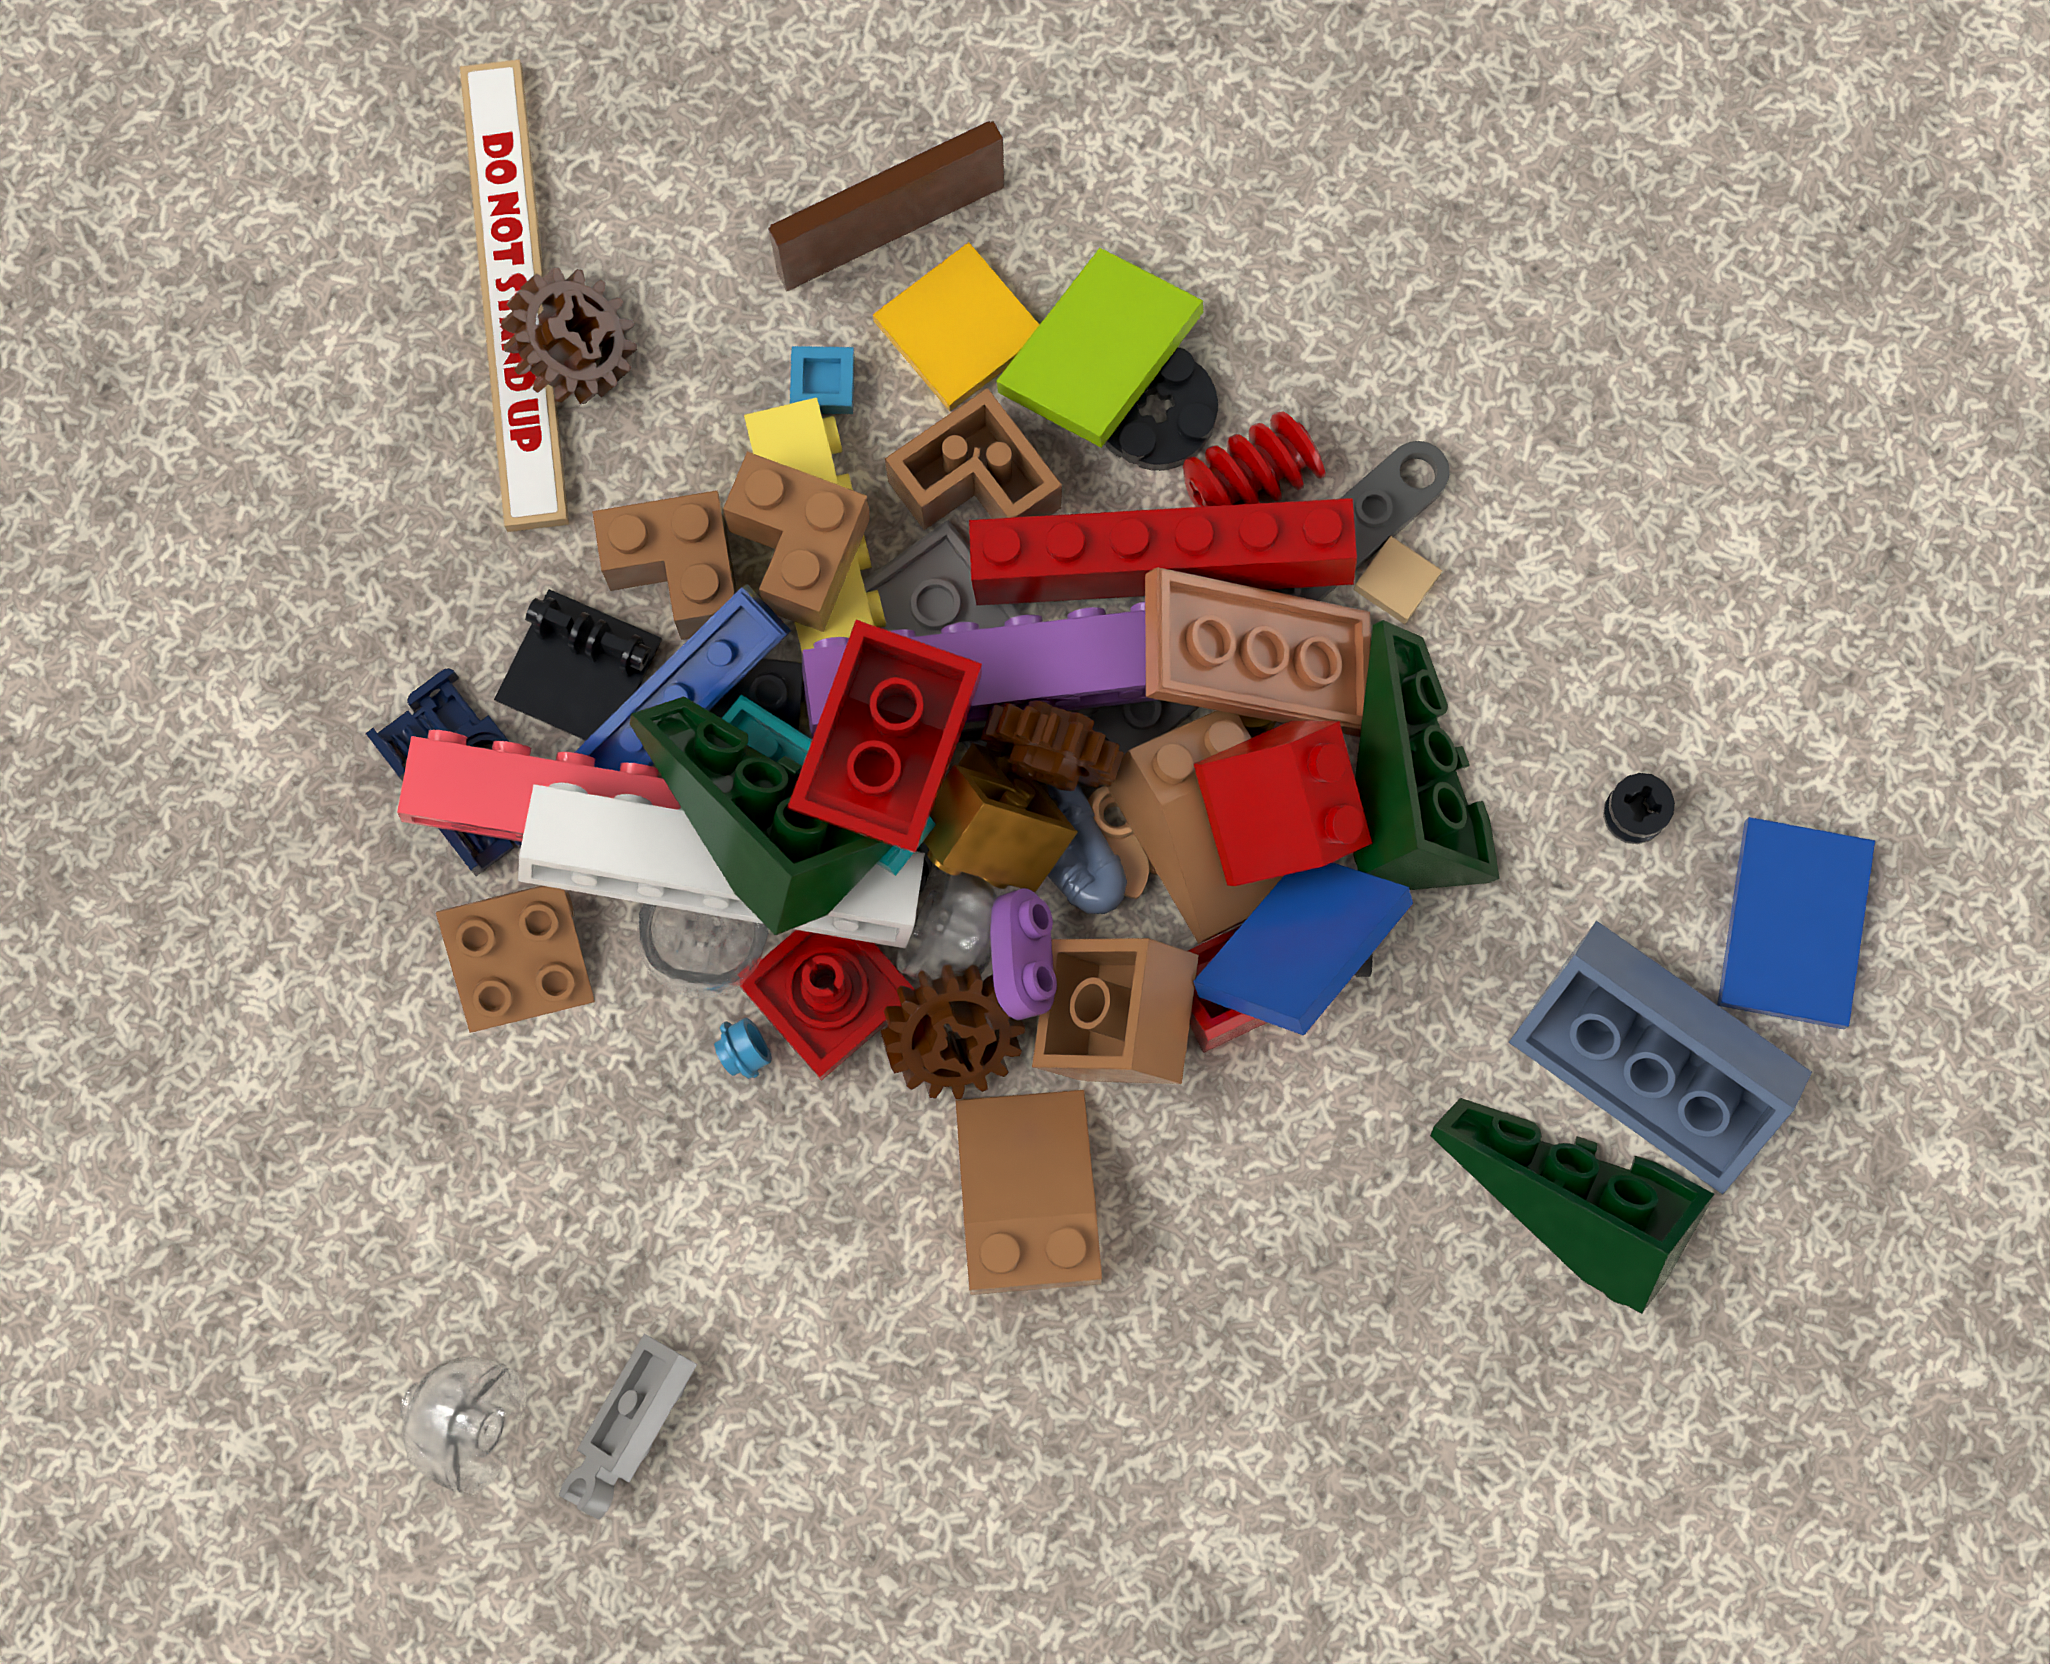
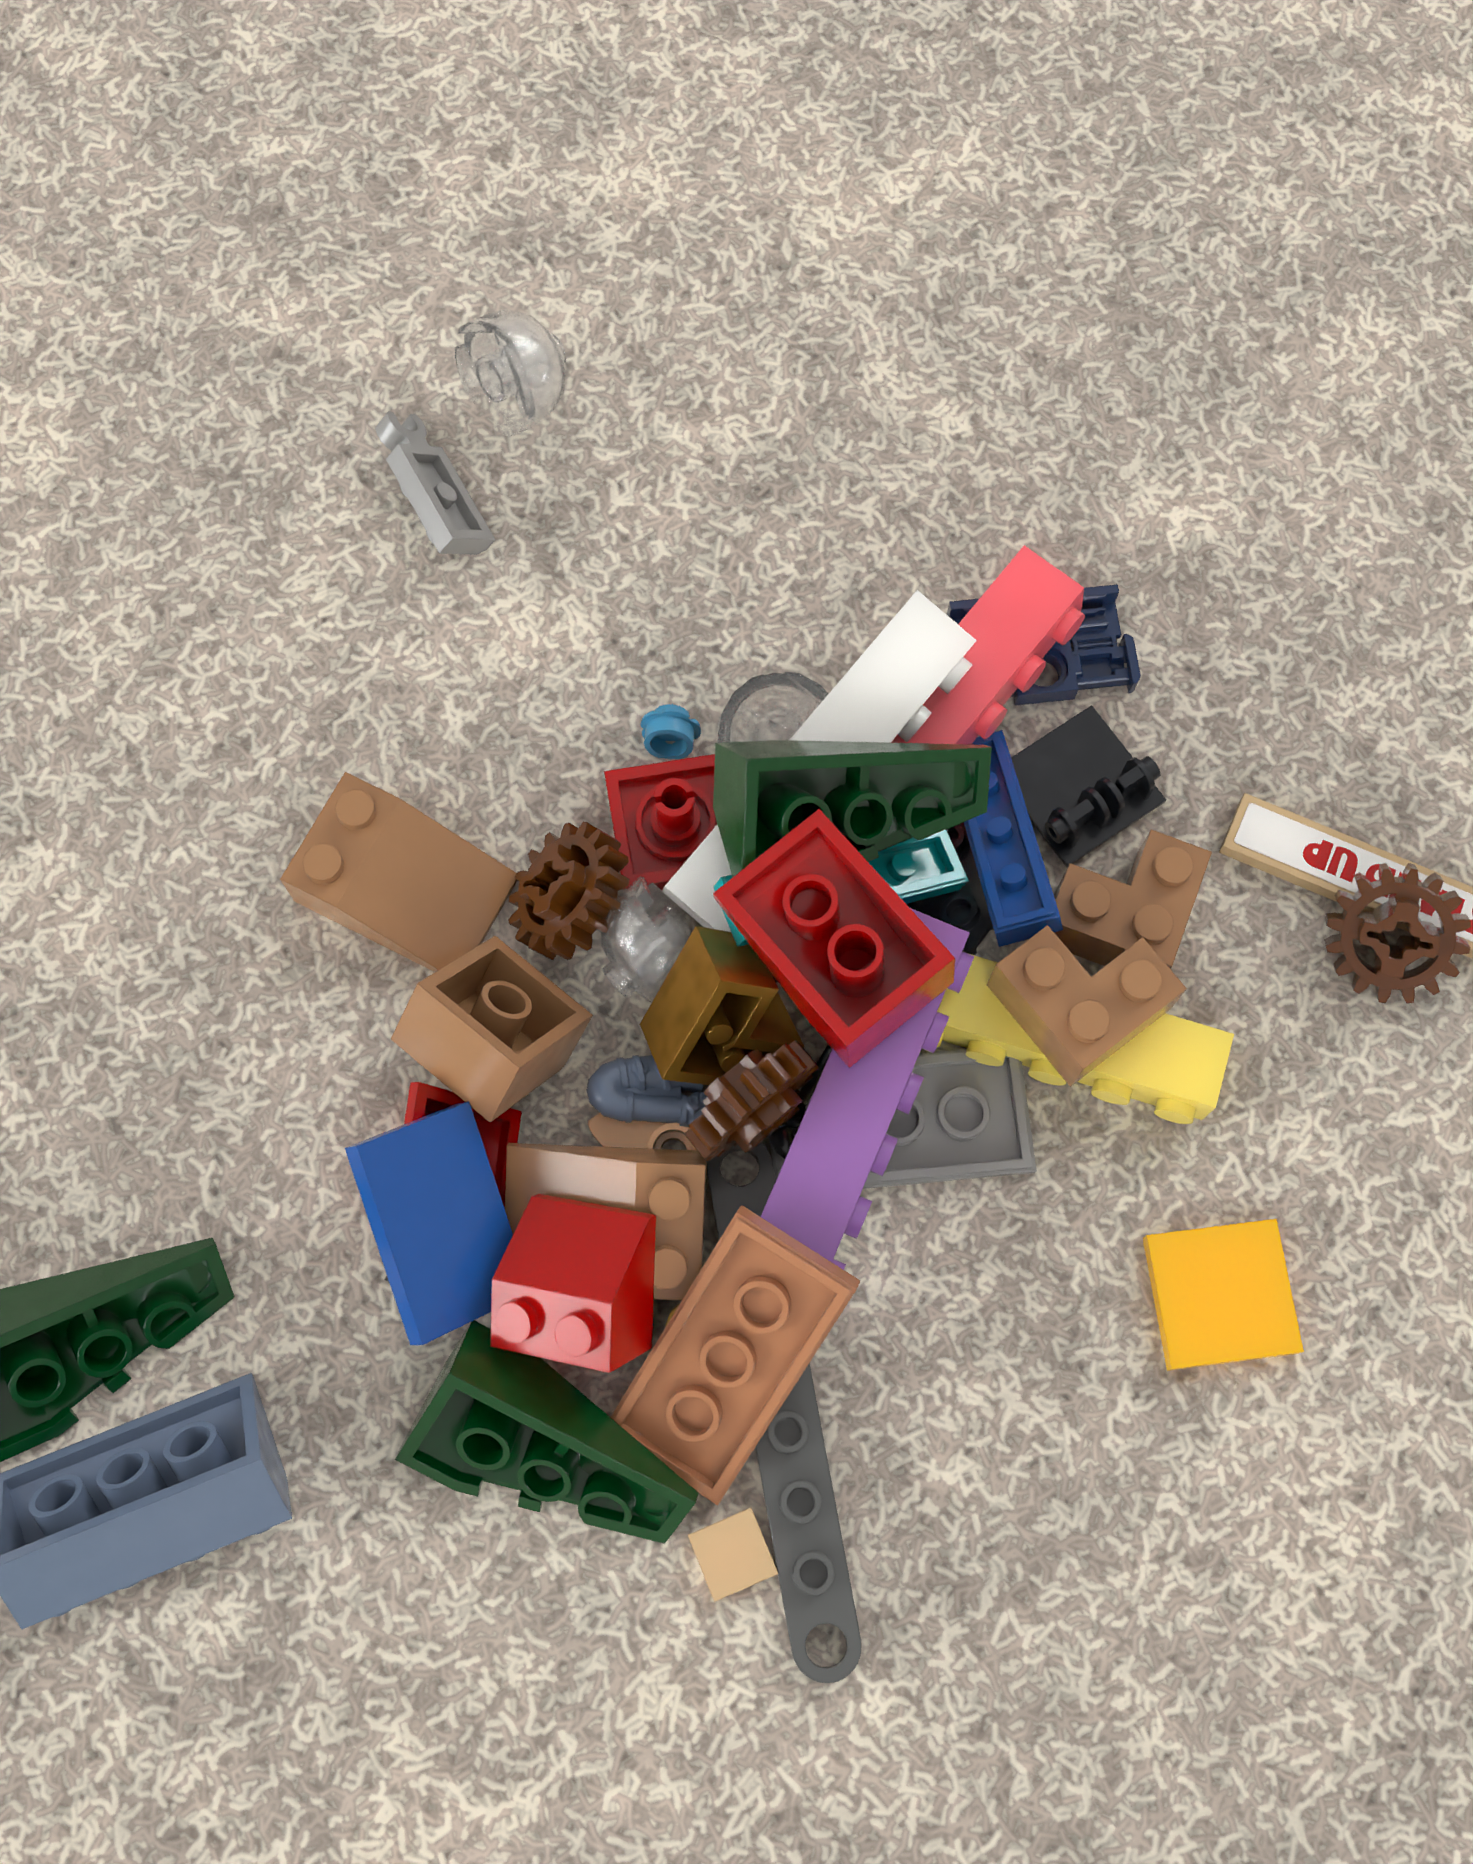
camera: 120 degrees right, 5 degrees down
(515, 956) = (853, 598): medium nougat hinge -> none
(823, 375) = (1235, 1135): dark azure plate -> none
(888, 205) = (1377, 1285): reddish brown tile -> none
(971, 455) = (1078, 1224): medium nougat brick -> none
(1022, 954) = (590, 976): medium lavender plate -> none
(1100, 347) = (1124, 1407): lime tile -> none
(1112, 551) = (880, 1333): red brick -> none
(1186, 425) = (1004, 1451): black plate -> none
(1253, 464) = (918, 1476): red piece -> none
(1631, 820) = (386, 1638): black wheel -> none
(1796, 923) = (169, 1723): blue tile -> none

